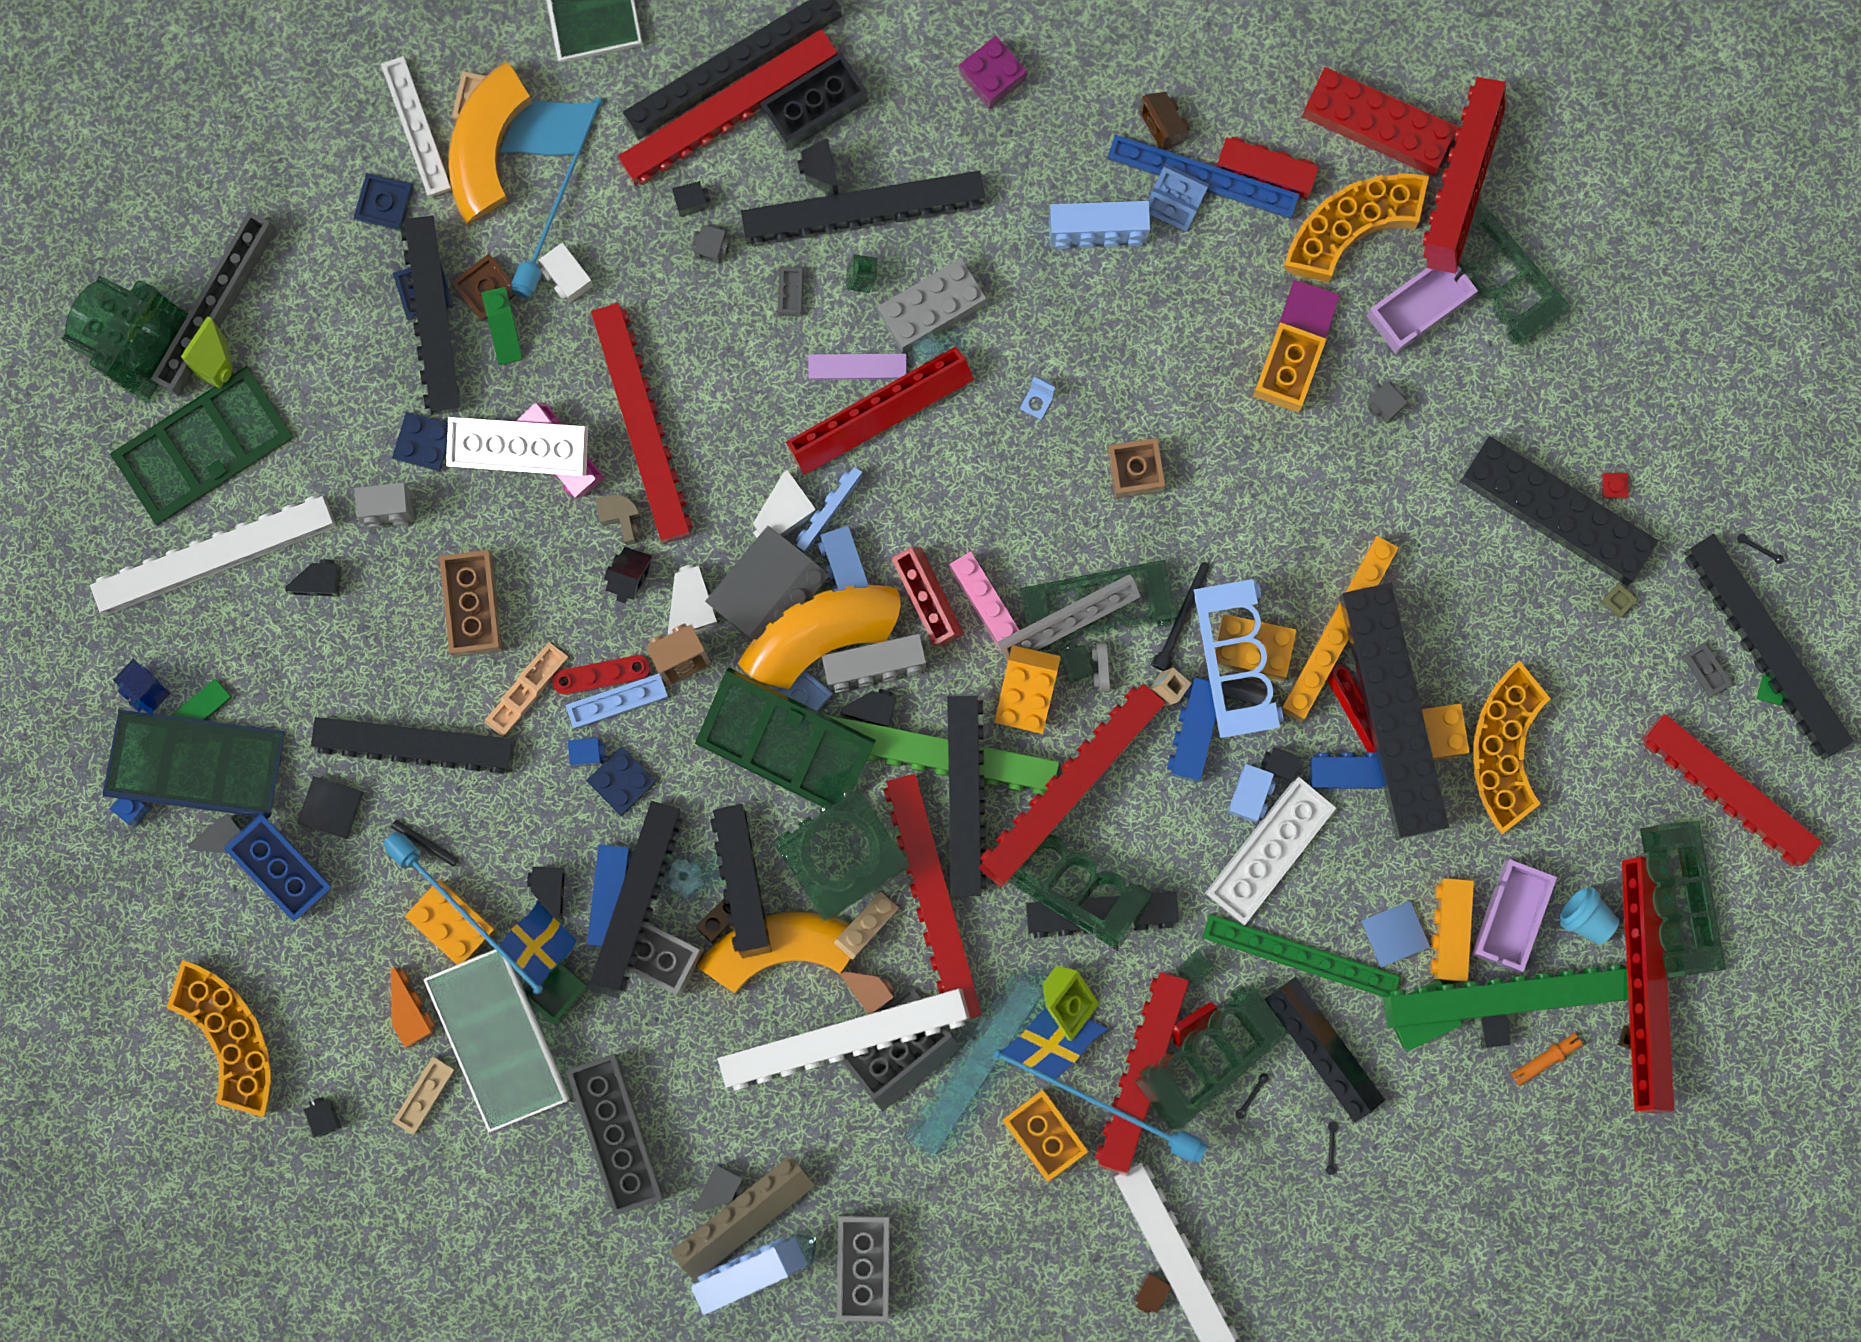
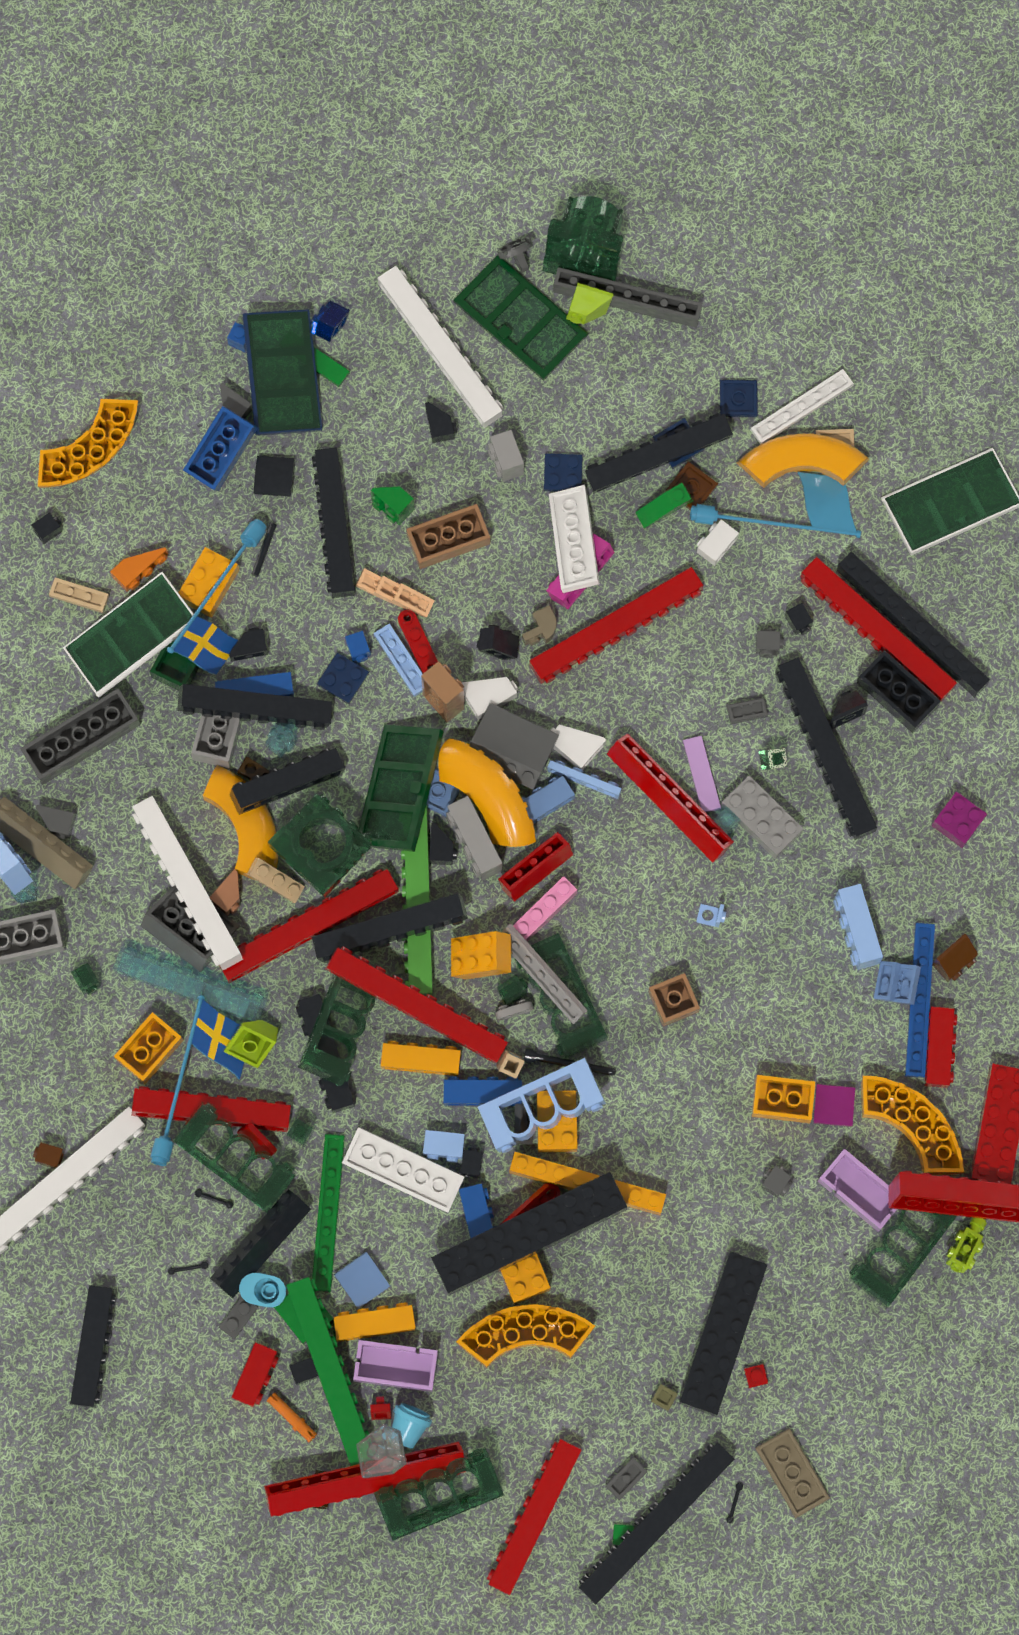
camera: 75 degrees right, 5 degrees down
(111, 428) = (515, 249): none -> dark grey tile
(407, 662) = (393, 502): none -> green slope
(935, 1196) = (86, 979): none -> clear green brick
(1136, 797) = (420, 1059): none -> light orange brick
(1385, 1059) = (262, 1290): none -> medium azure piece
(1406, 1290) = (92, 1346): none -> black brick
(1407, 1098) = (238, 1318): none -> dark grey plate
(1486, 1092) = (255, 1375): none -> red brick
(1525, 206) = (966, 1252): none -> lime brick
(1561, 948) = (380, 1410): none -> red tile
(1625, 956) = (381, 1452): none -> clear slope
(1739, 472) = (792, 1473): none -> dark tan tile

